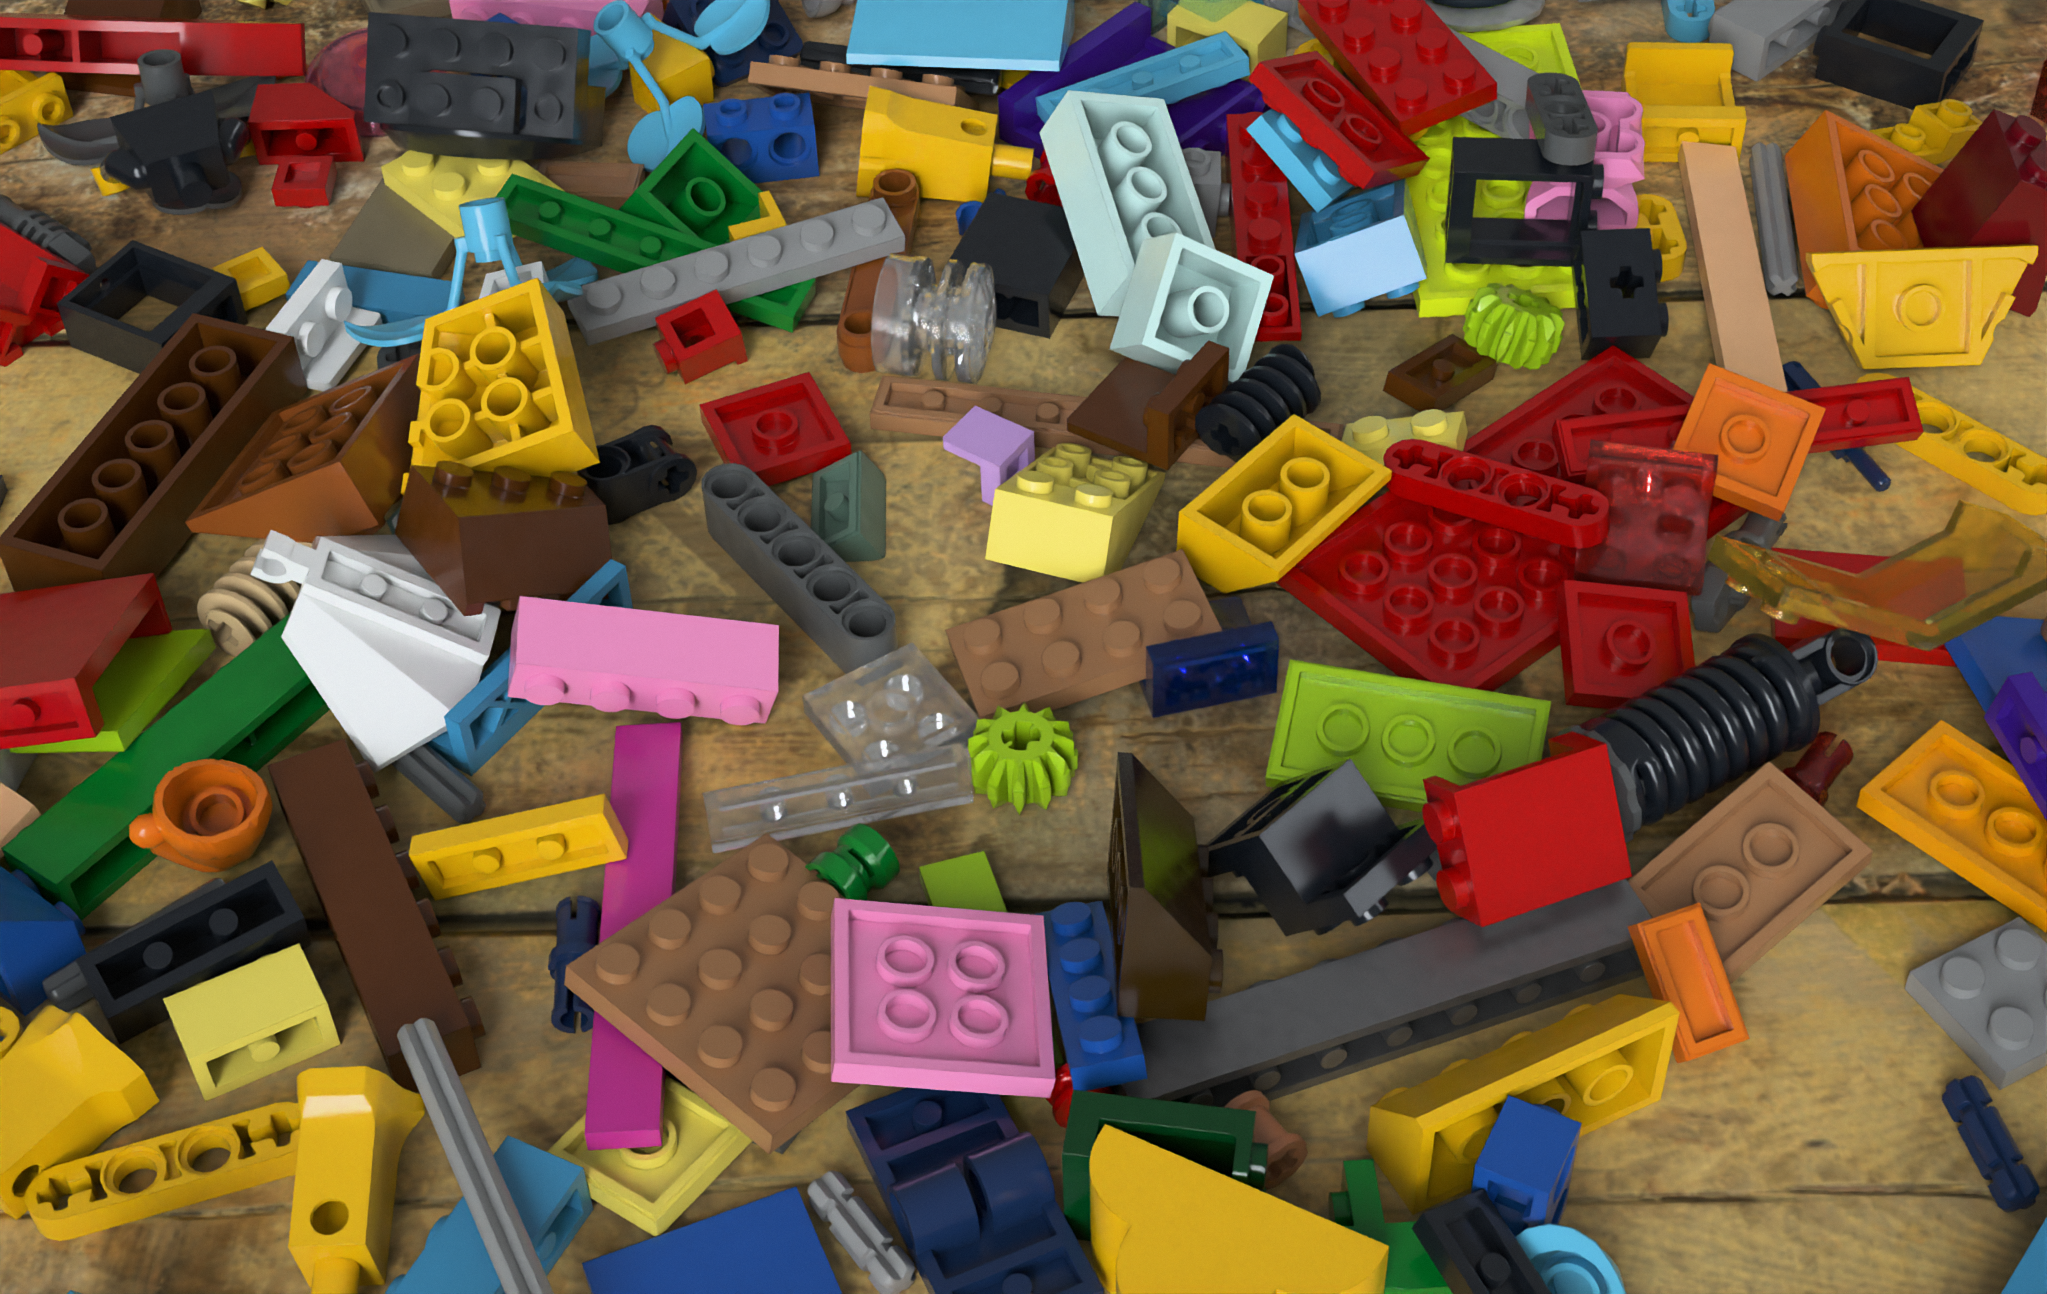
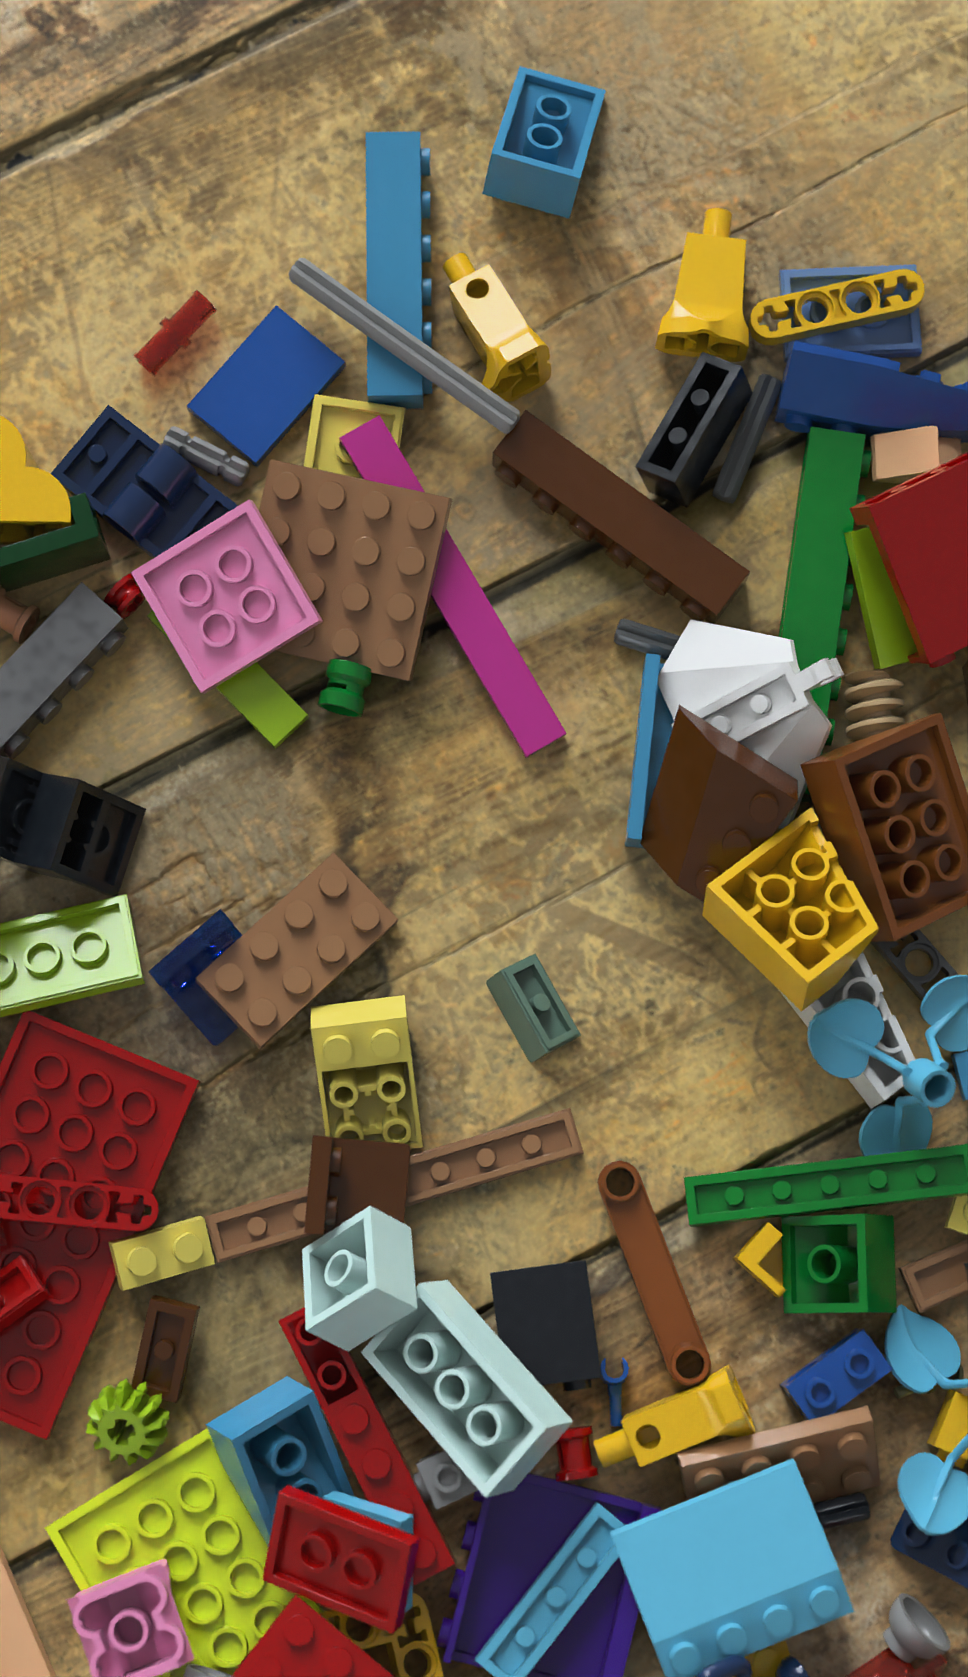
camera: 150 degrees right, 35 degrees up
(176, 1180) = (617, 315): yellow beam -> none
(206, 815) = (755, 504): orange piece -> none
(252, 1021) = (632, 412): light yellow brick -> none
(519, 847) = (553, 595): yellow plate -> none
(573, 939) = (477, 549): dark blue pin -> none
(633, 470) = (696, 964): black piece -> none
(643, 661) = (561, 762): bright pink brick -> none
(698, 338) = (733, 1100): red brick -> none
(738, 269) = (744, 1190): light grey plate -> none
(777, 429) = (625, 1052): red plate -> none
(797, 568) = (511, 901): dark grey beam -> none
(839, 797) = (385, 740): clear tile -> none
(890, 708) = (391, 826): clear plate -> none
(924, 317) = (561, 1201): clear wheel -> none
(994, 445) = (454, 1095): lavender panel -> none
(1022, 757) = (303, 831): lime gear -> none
(1097, 1042) = (145, 649): blue plate -> none
(1159, 902) = (125, 714): dark brown slope -> none
(1259, 402) = (269, 1218): black piece -> none
(1275, 506) = (208, 1120): yellow slope -> none
(1508, 239) = (157, 1533): black window -> none
(1561, 119) = (169, 1617): dark grey beam -> none
(1617, 292) = (57, 1488): black brick -> none
(1665, 233) = (51, 1614): yellow beam -> none

